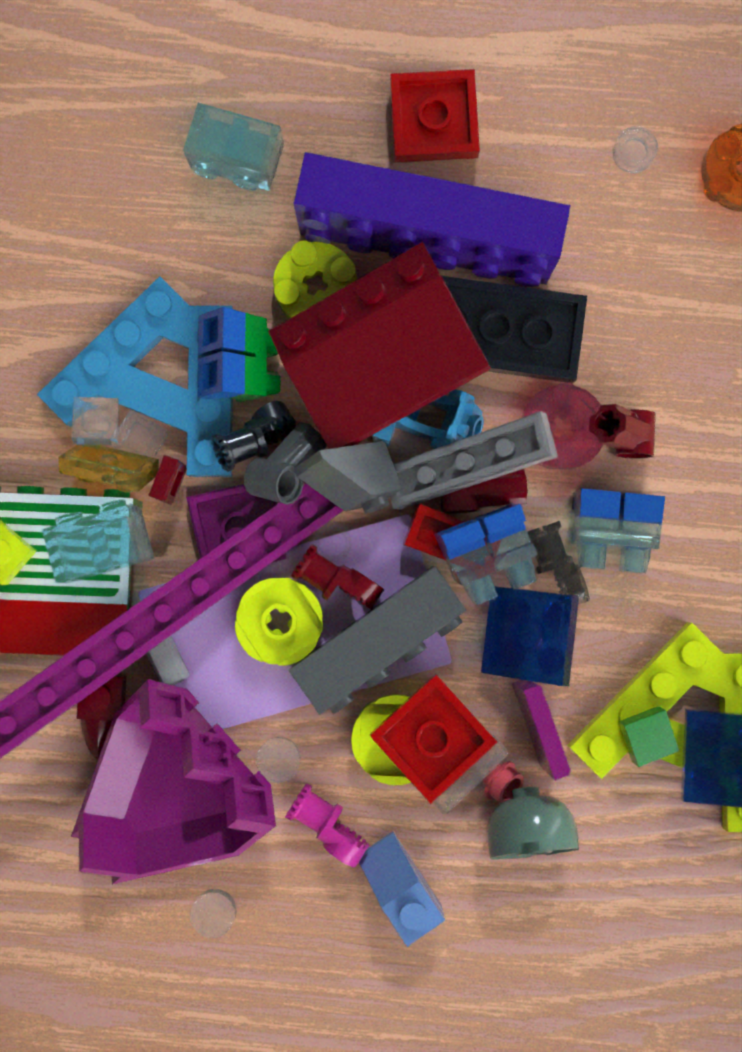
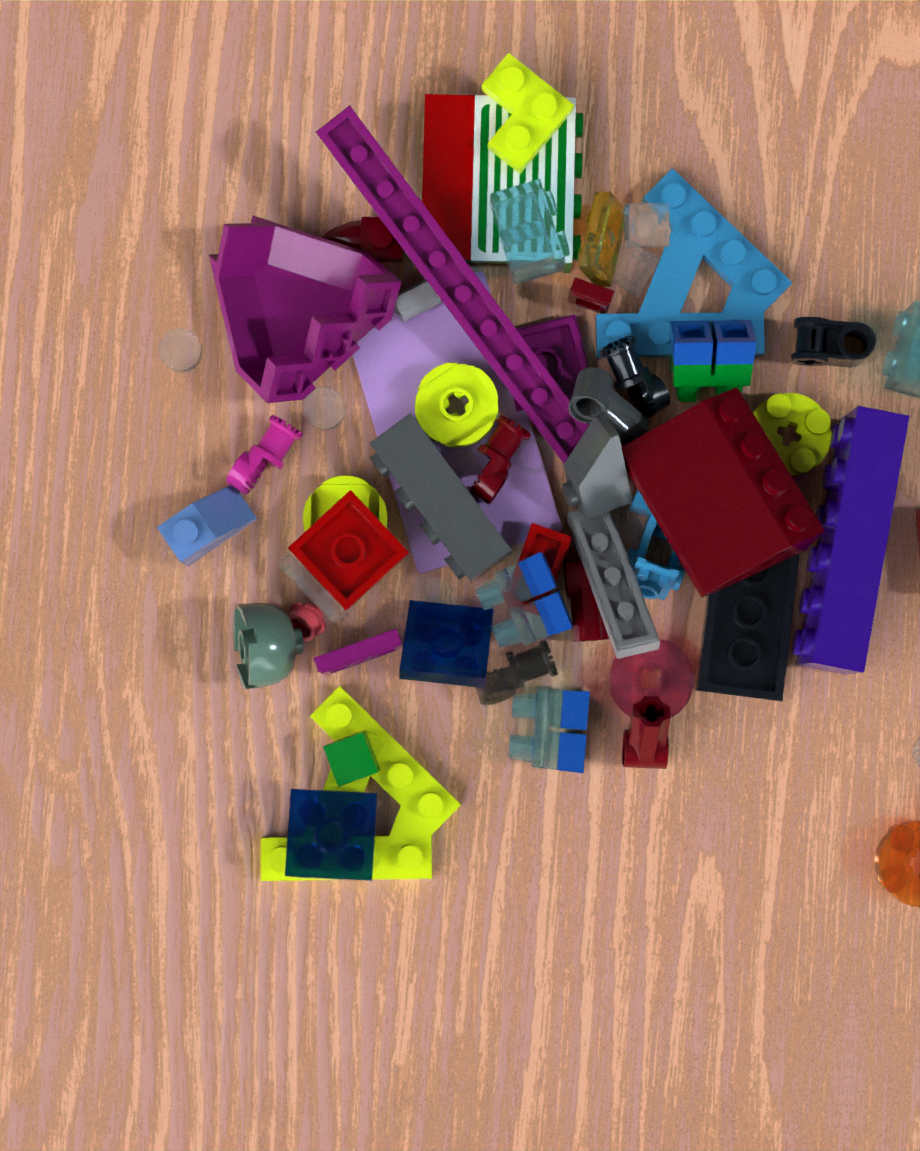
camera: 85 degrees right, 0 degrees up
(222, 245) = (827, 342): none -> black piece

